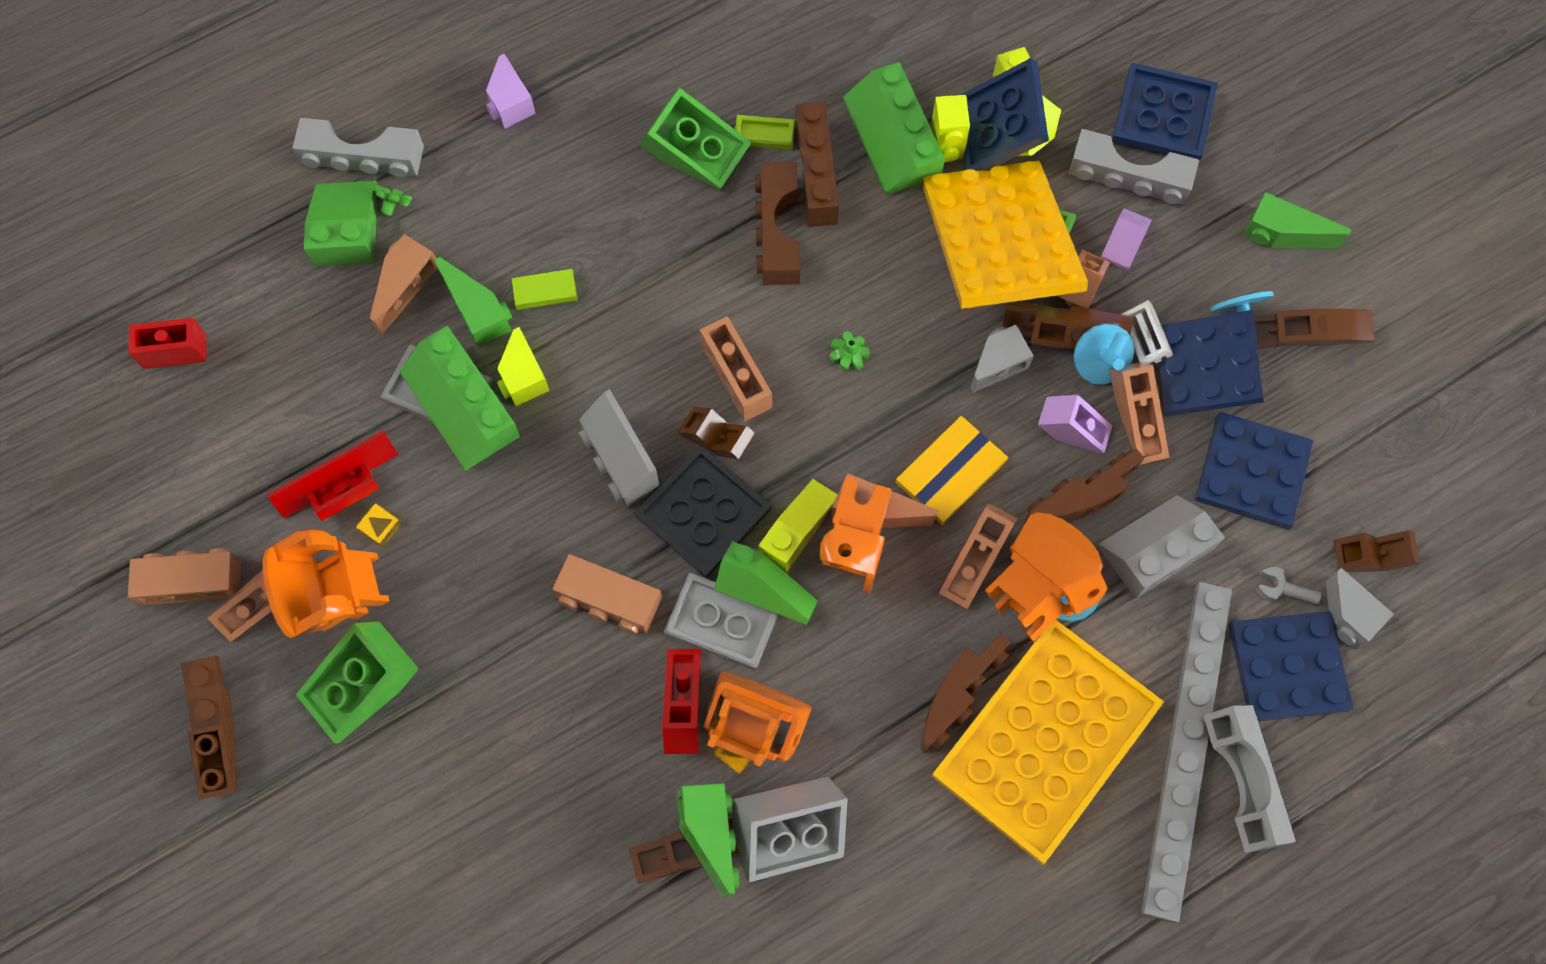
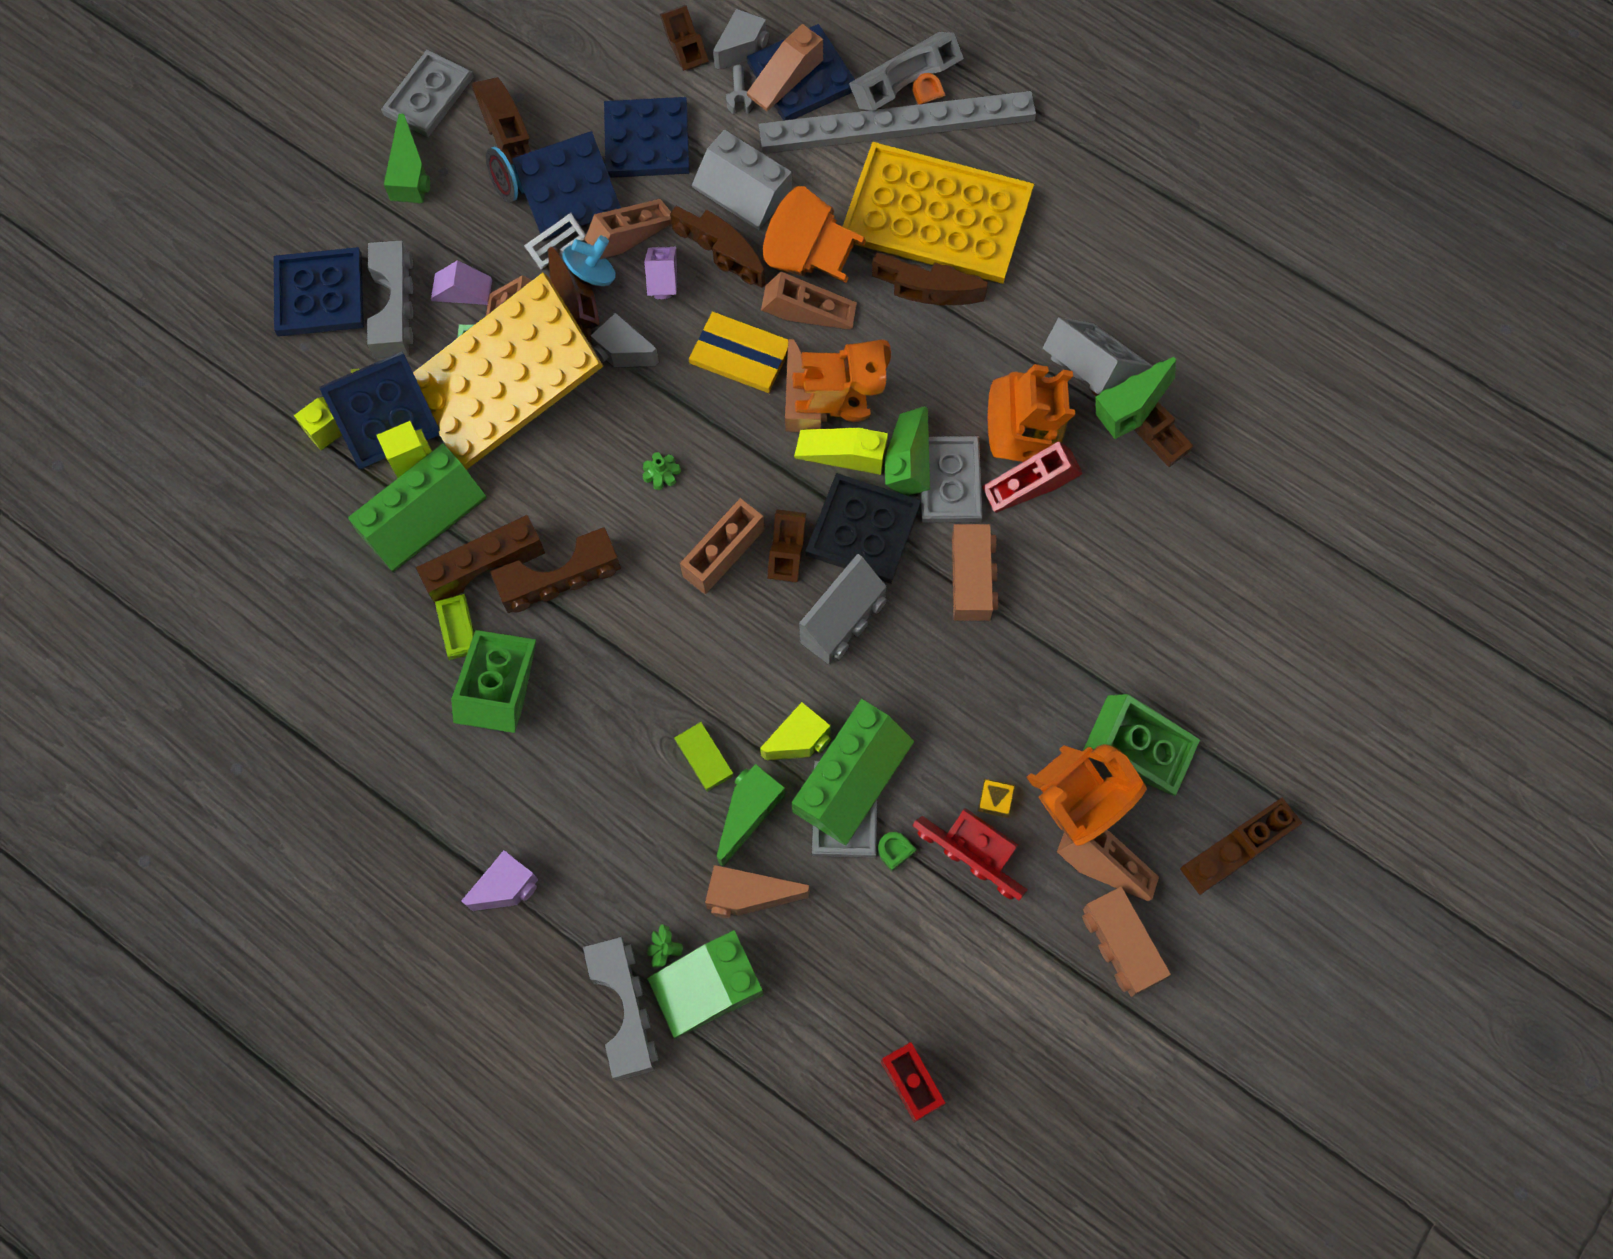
camera: 110 degrees left, 0 degrees up
(378, 417) = (895, 849): none -> bright green tile
(1220, 798) = (927, 88): none -> orange tile
(1290, 638) = (787, 67): none -> nougat slope
(1380, 275) = (428, 92): none -> light grey tile

